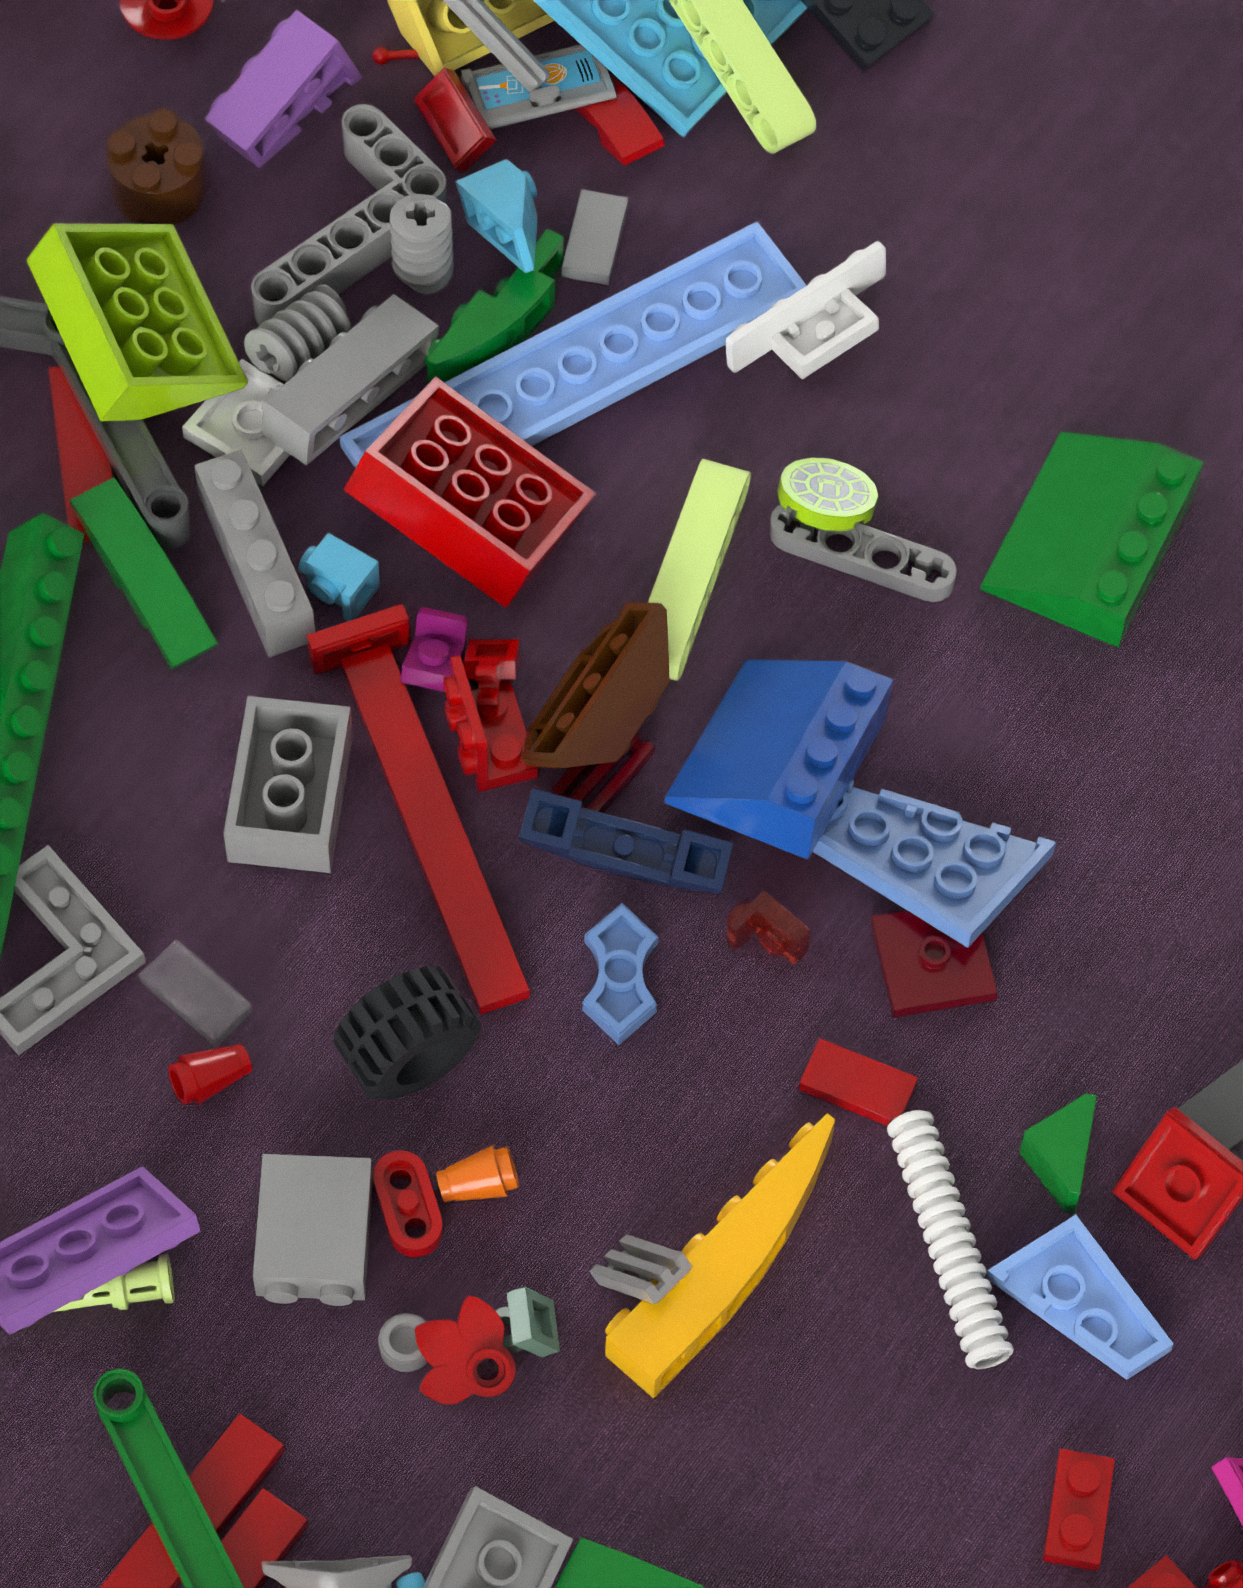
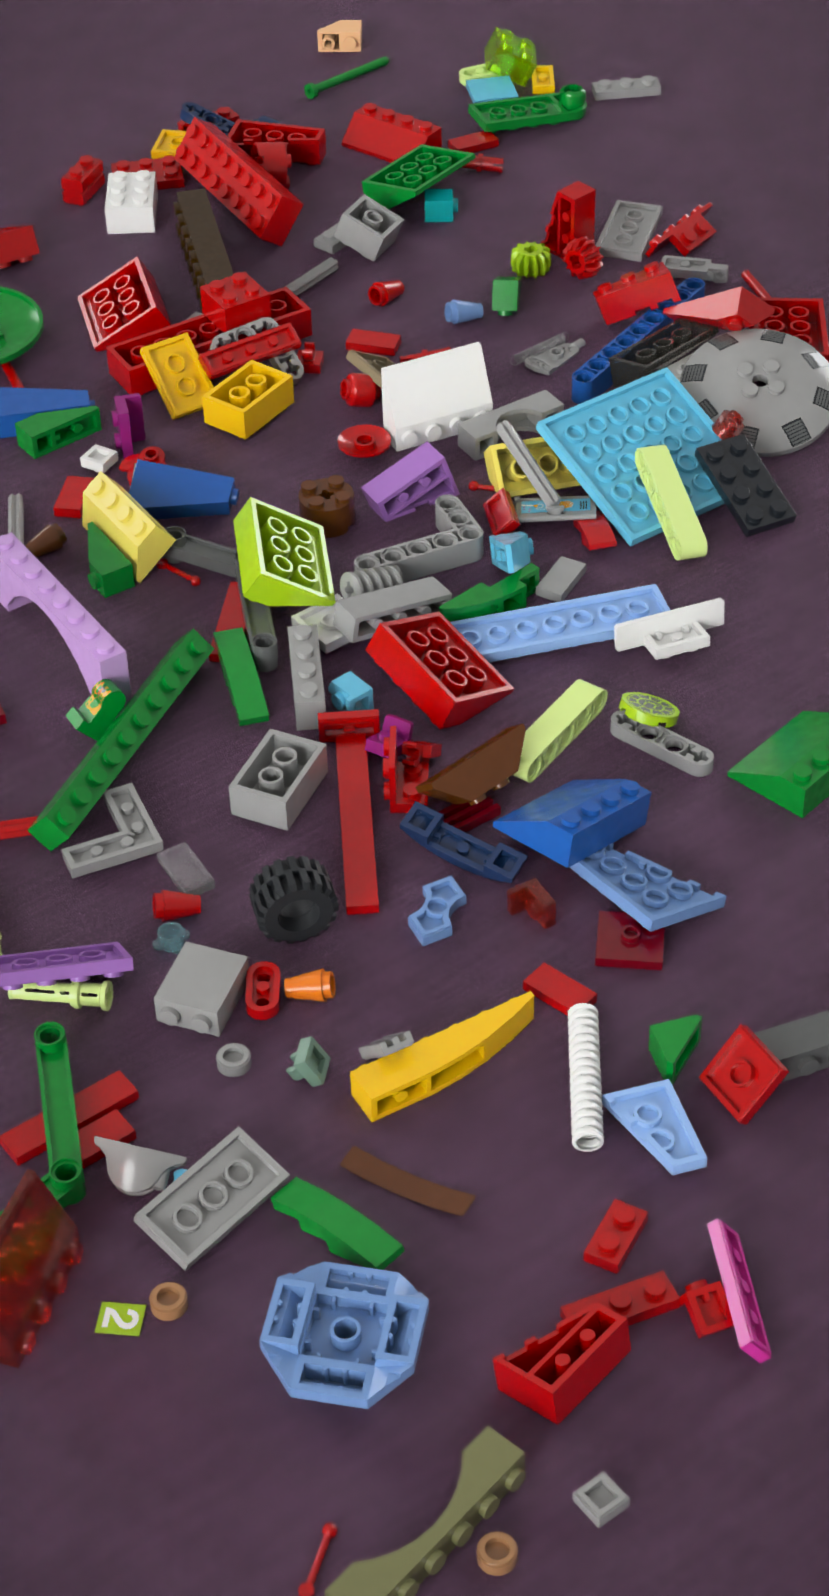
camera: 20 degrees right, 20 degrees down
(219, 1123) = (171, 937): none -> clear light blue plate
(422, 243) = (458, 557): light grey piece -> none
(458, 1348) = (261, 1066): red plate -> none
(746, 1498) = (406, 1184): none -> reddish brown sticker

